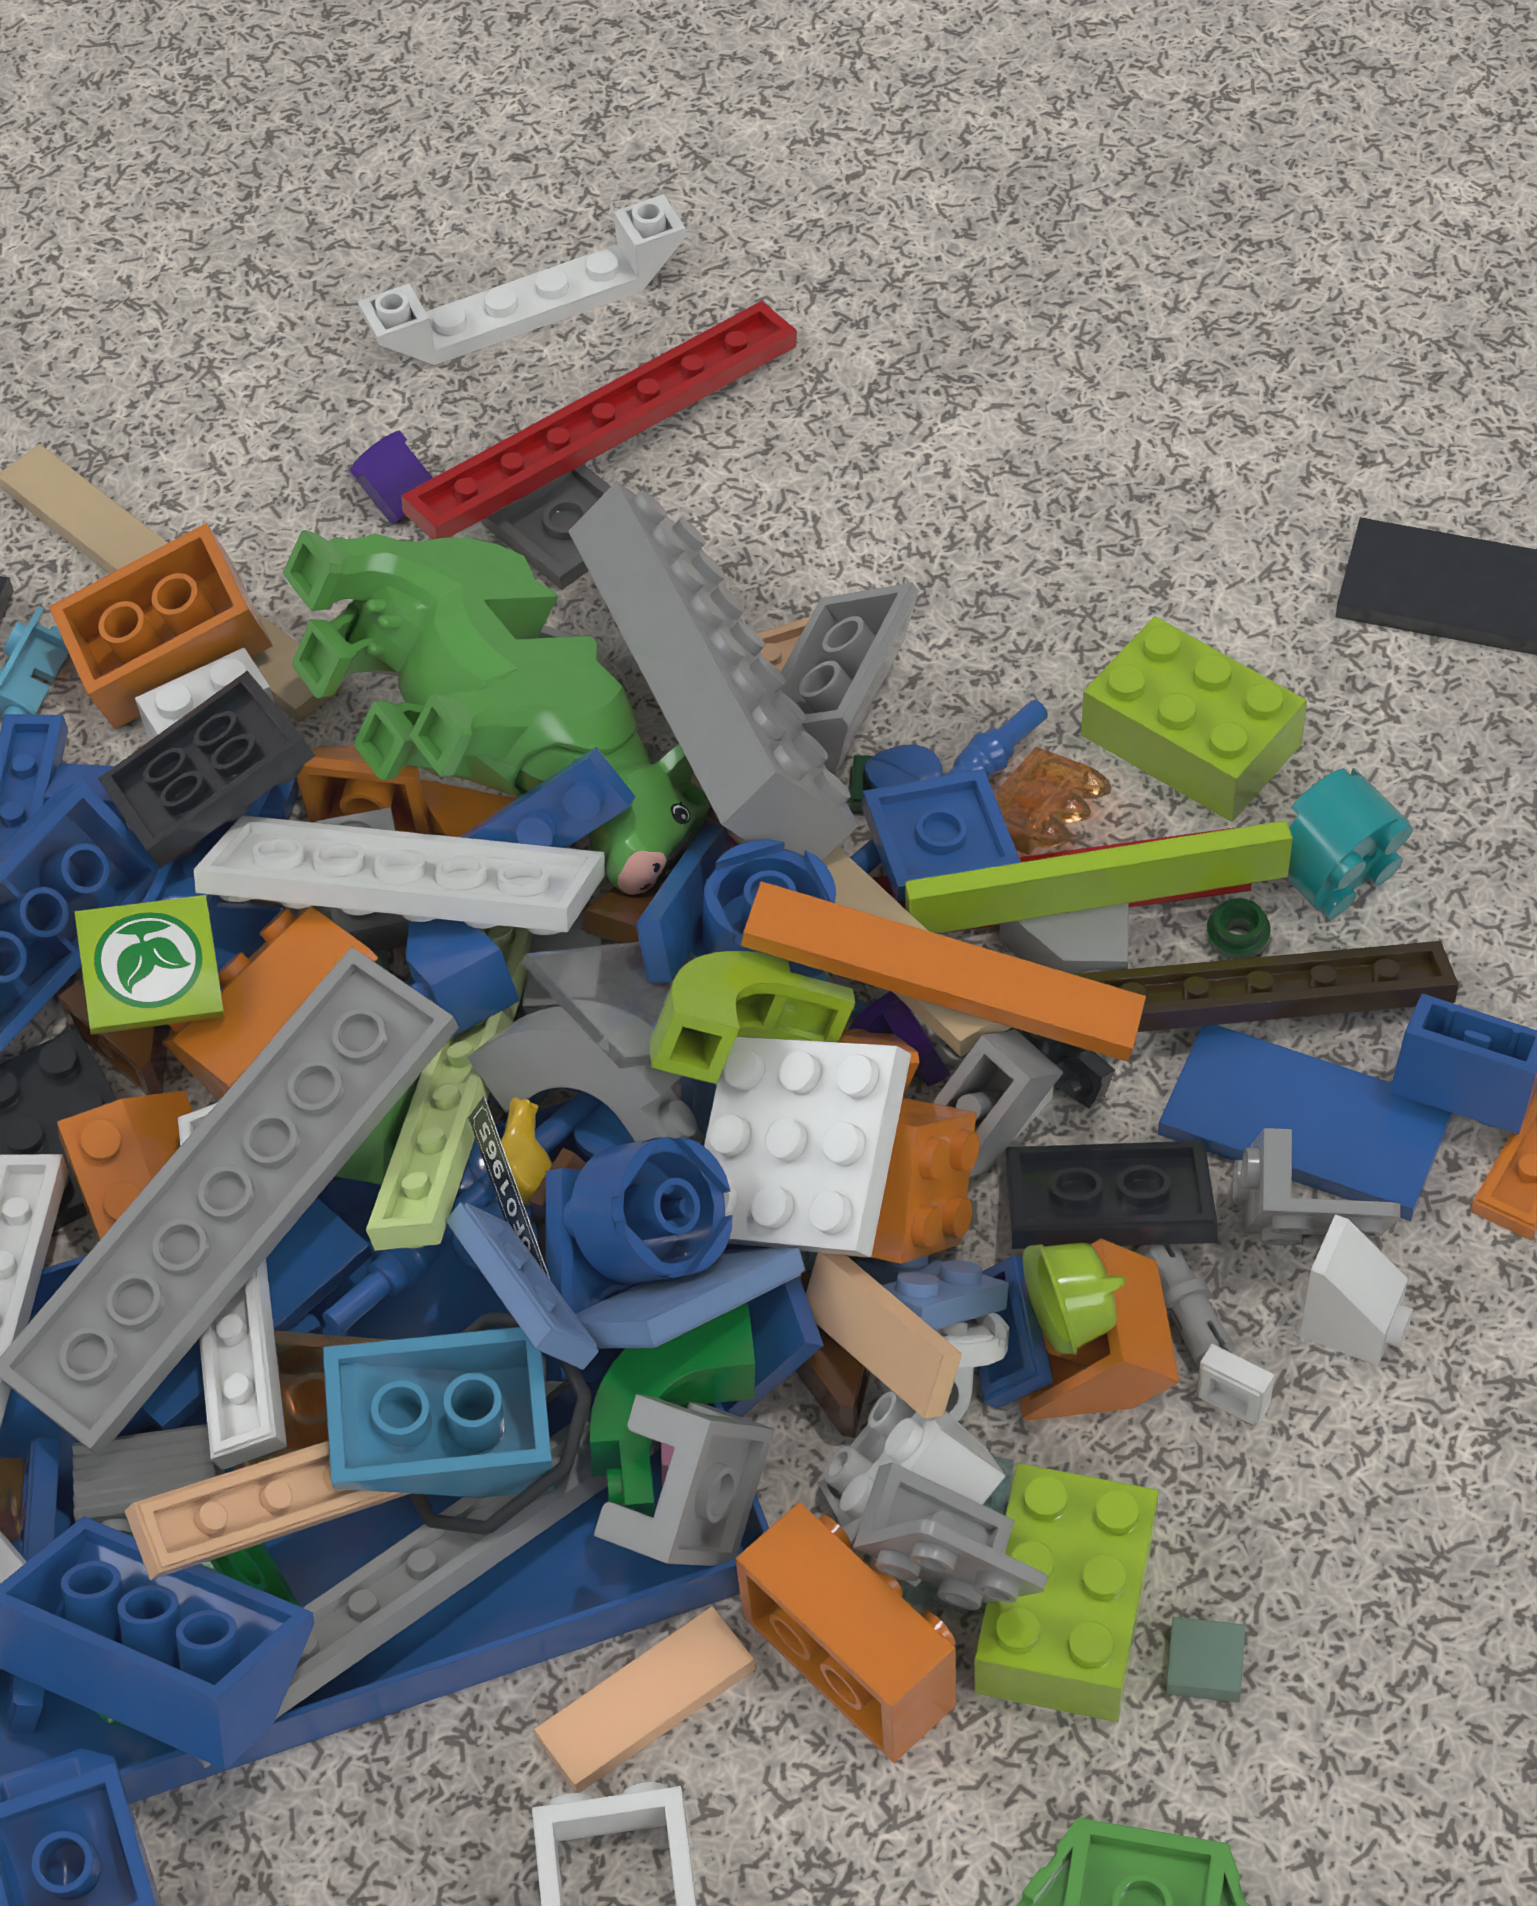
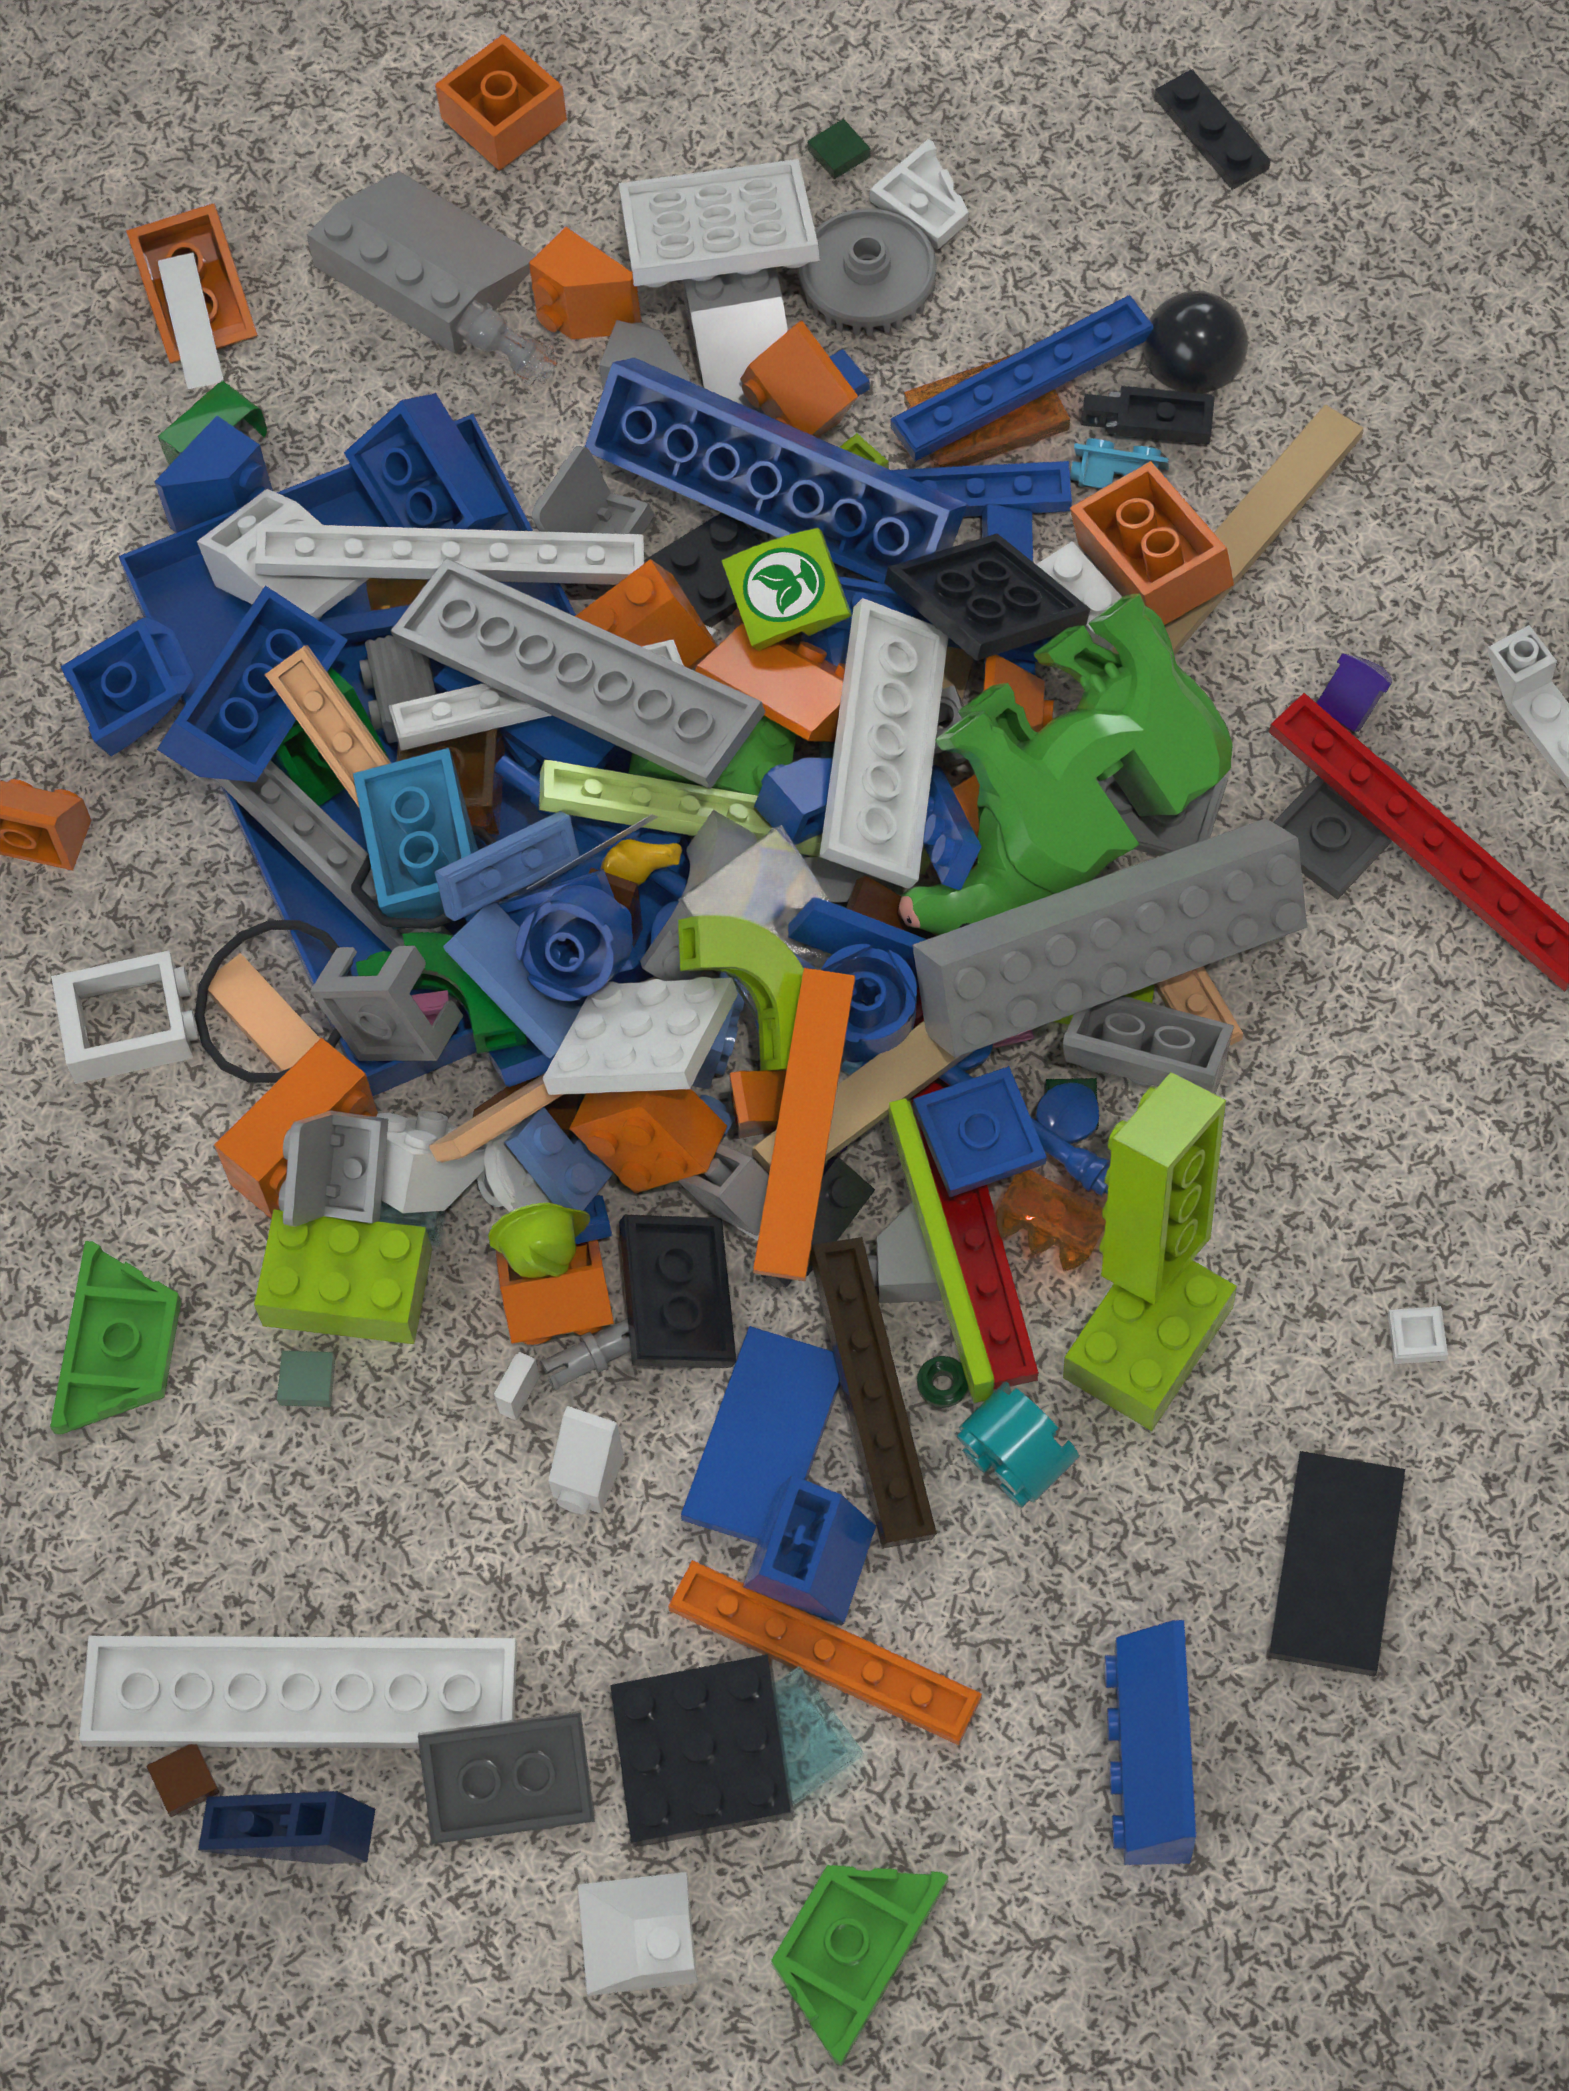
camera: 85 degrees right, 10 degrees up
(564, 1765) = (210, 973): none -> black piece
(1086, 592) = (1161, 1186): none -> lime brick
(1197, 500) = (1417, 1335): none -> white tile
(1265, 1187) = (649, 1409): light grey bracket -> none

